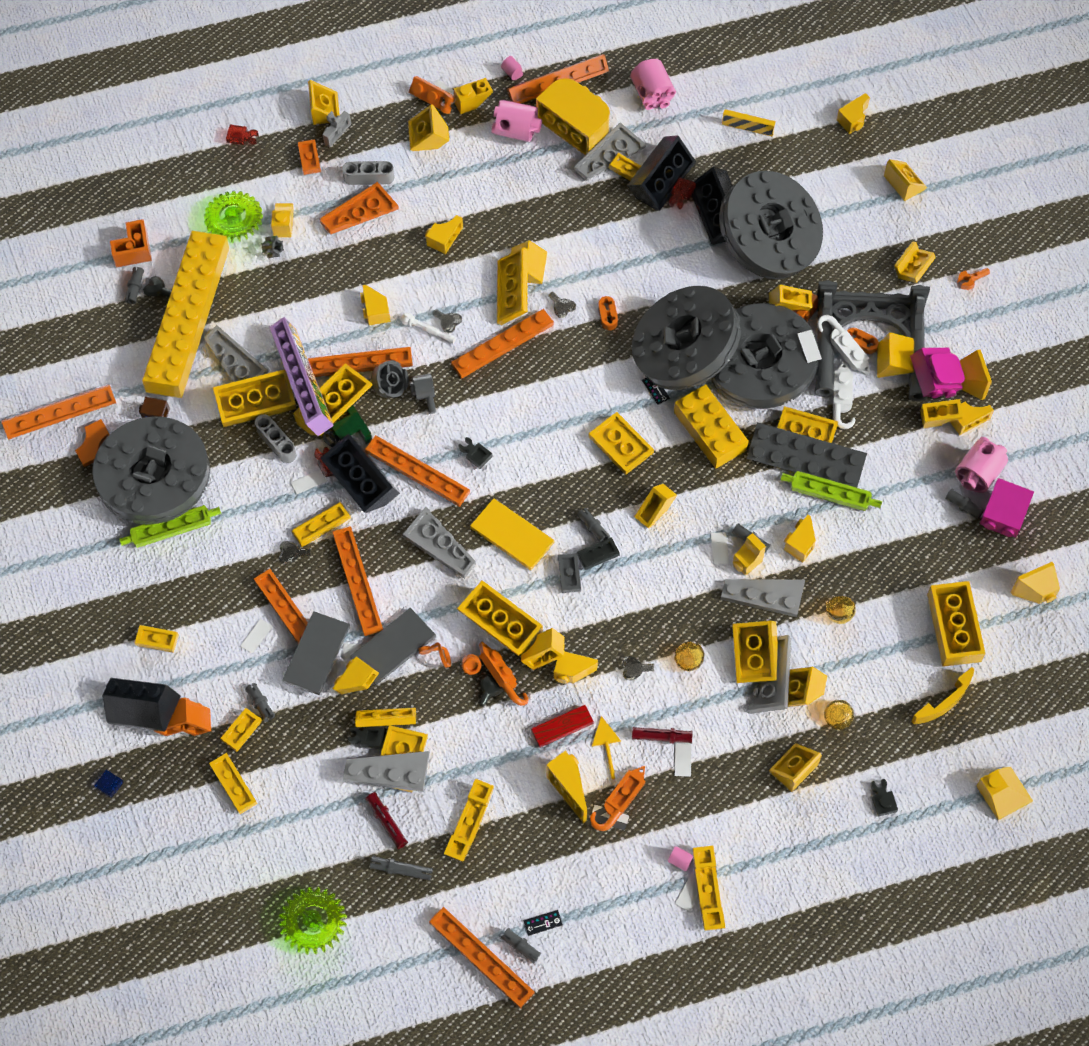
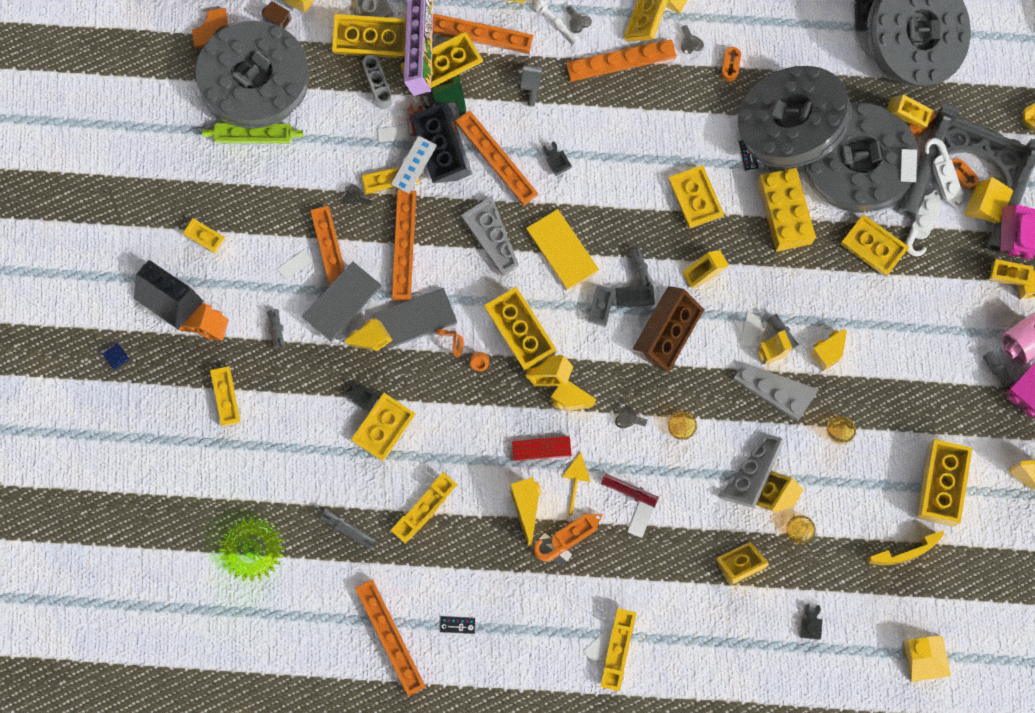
camera: 15 degrees right, 10 degrees up
(241, 729) = (250, 349): yellow plate -> none
(340, 502) = (413, 164): none -> white sticker
(374, 801) = (350, 481): dark red pin -> none
(385, 717) = (383, 383): yellow tile -> none
(389, 379) = (501, 61): dark grey cylinder -> none
(393, 771) = (372, 437): light grey wing -> none
(489, 688) = (489, 389): pearl dark grey rock -> none
(501, 673) = (503, 379): orange plate -> none
(521, 945) = (429, 639): dark grey pin -> none
(641, 572) = (668, 328): none -> reddish brown slope
(680, 858) = (603, 613): bright pink brick -> none
(755, 651) = (745, 443): yellow slope -> none
(806, 454) = (866, 270): dark grey plate -> none
(831, 491) = (876, 312): lime plate -> none

